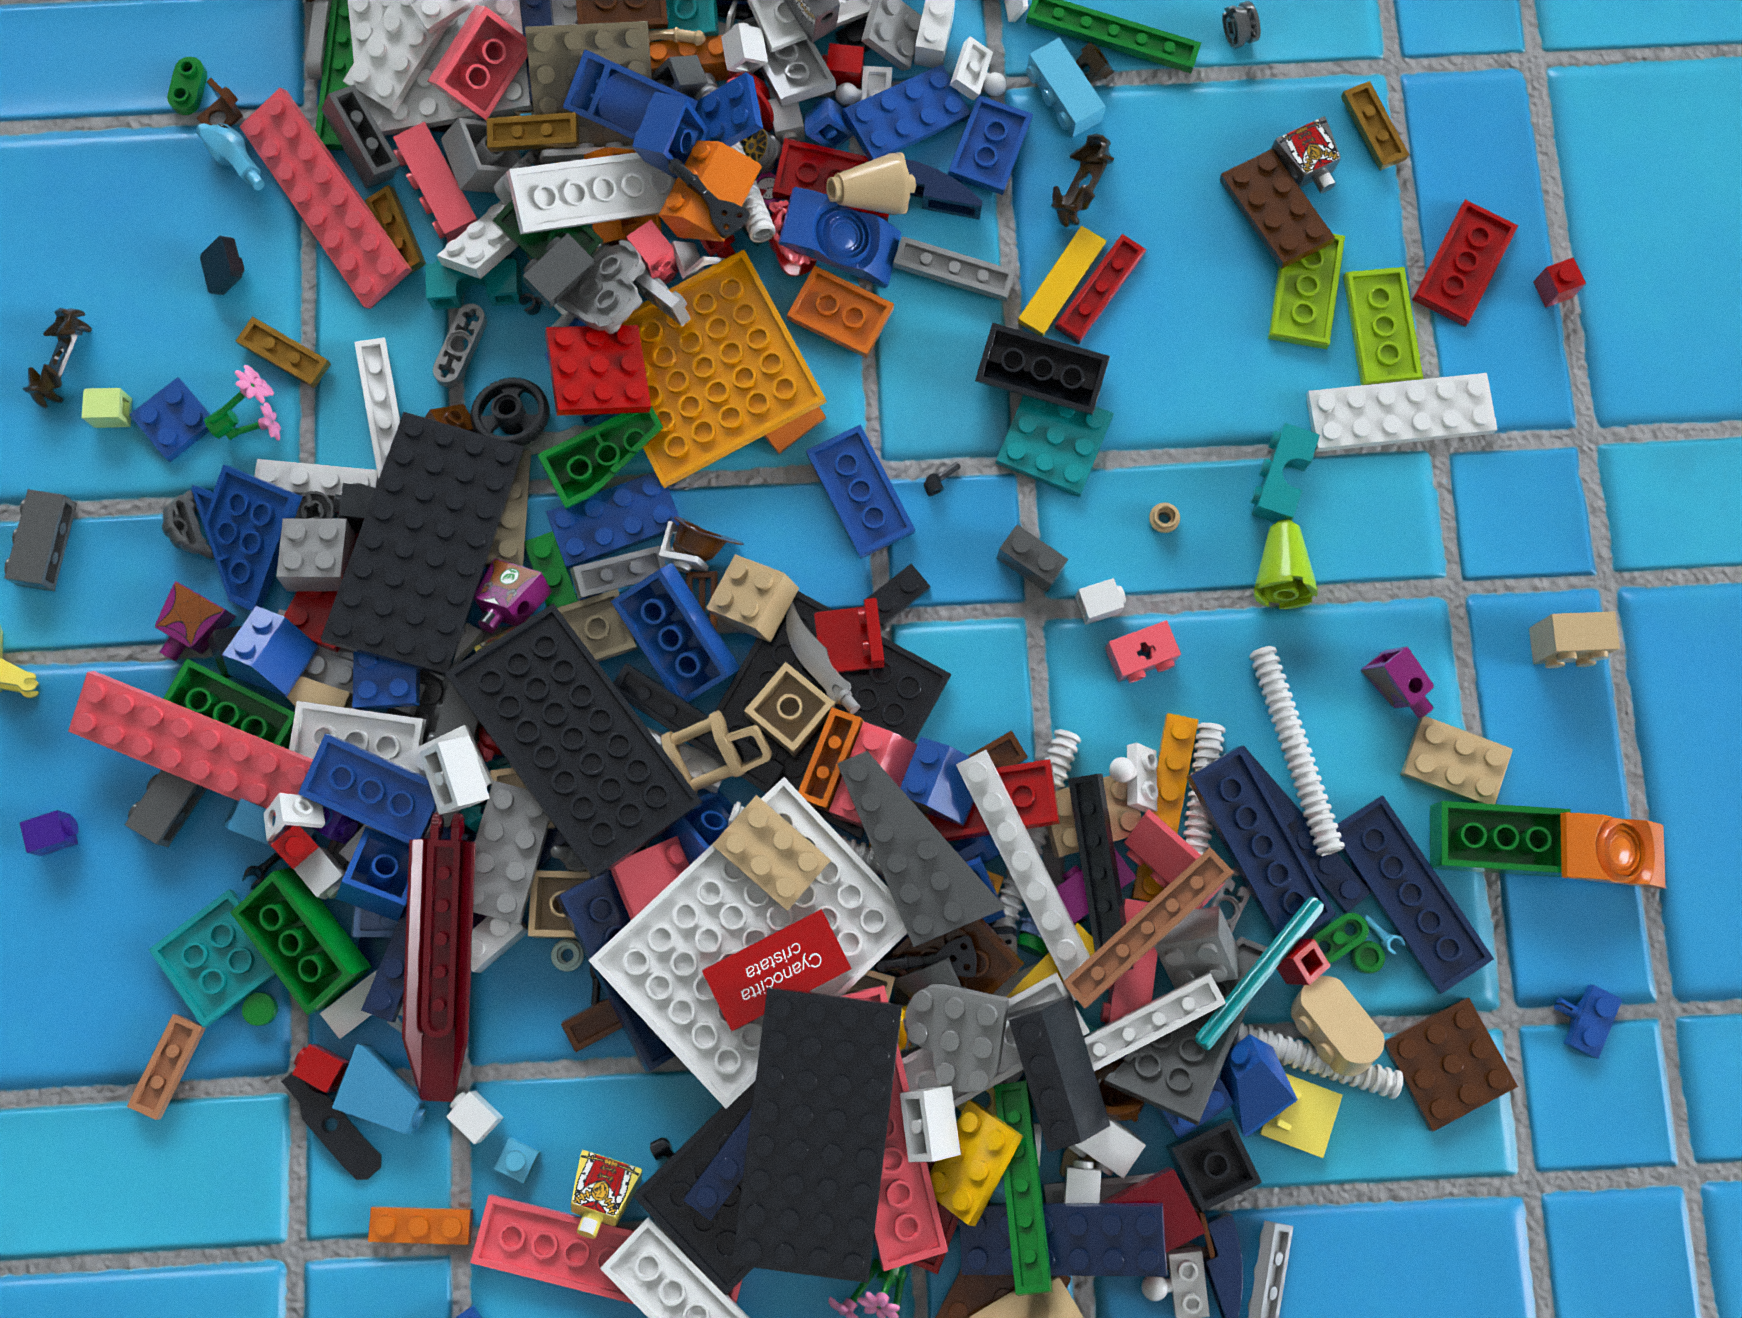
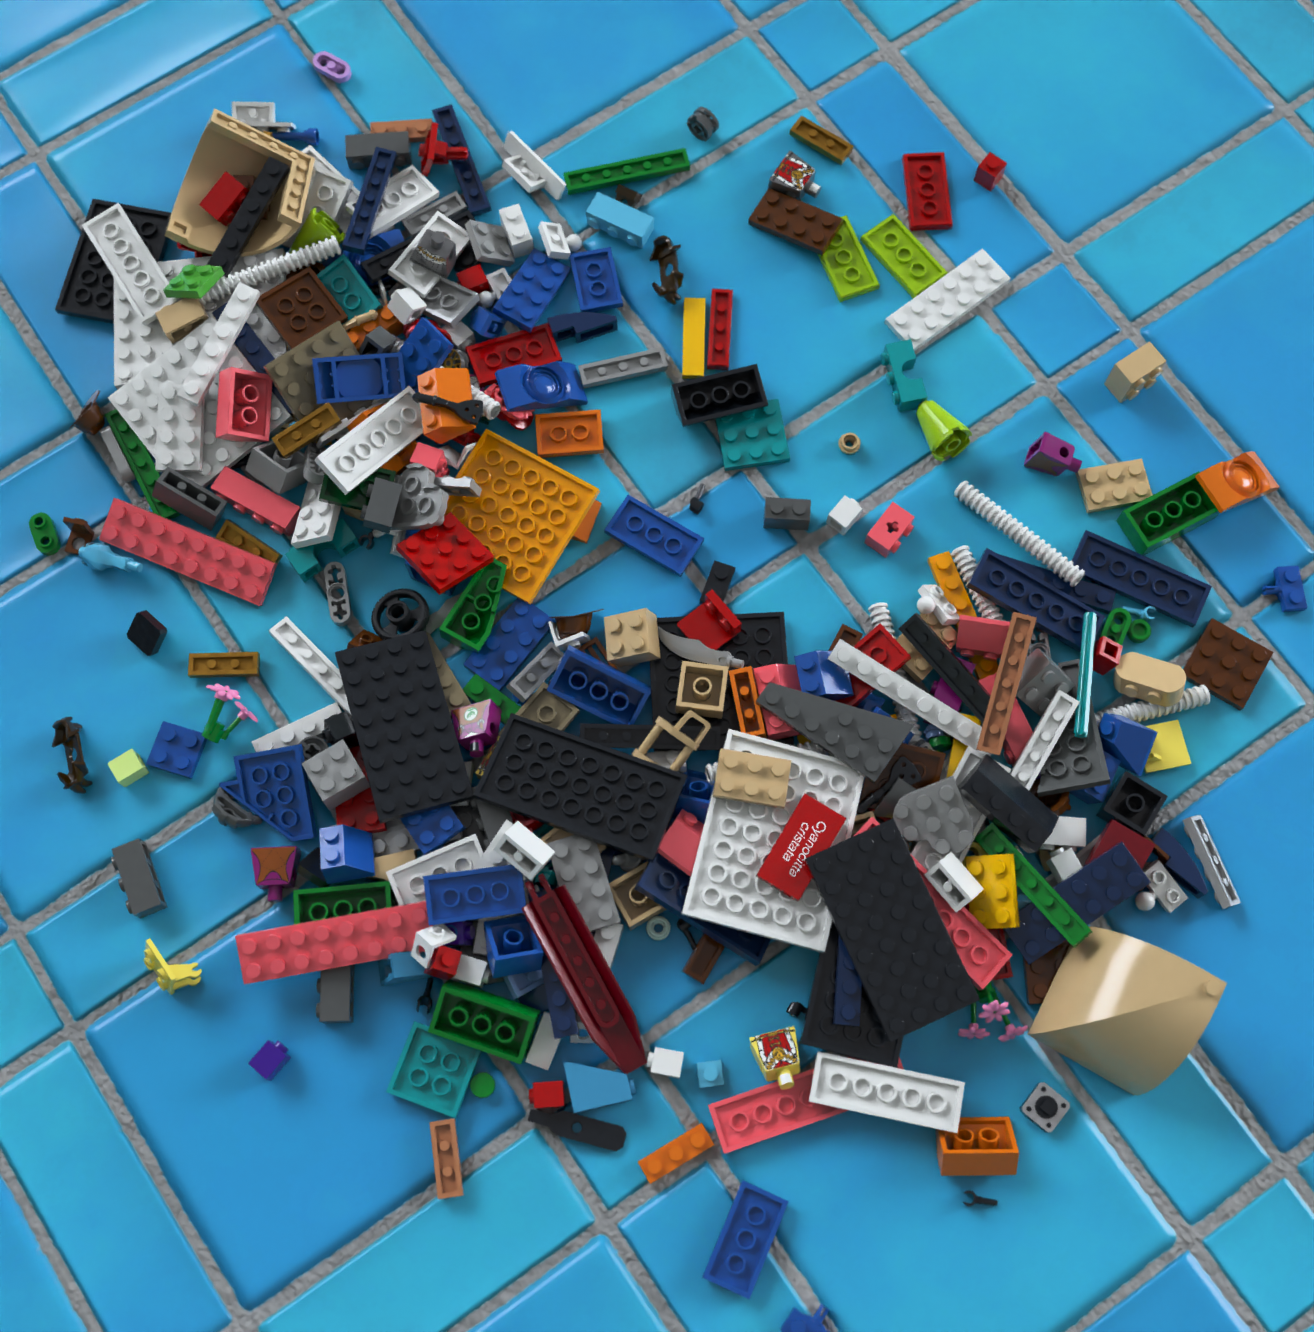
camera: 30 degrees left, 5 degrees down
(668, 131) = (397, 380): blue slope -> none
(874, 186) = (546, 342): tan cone -> none

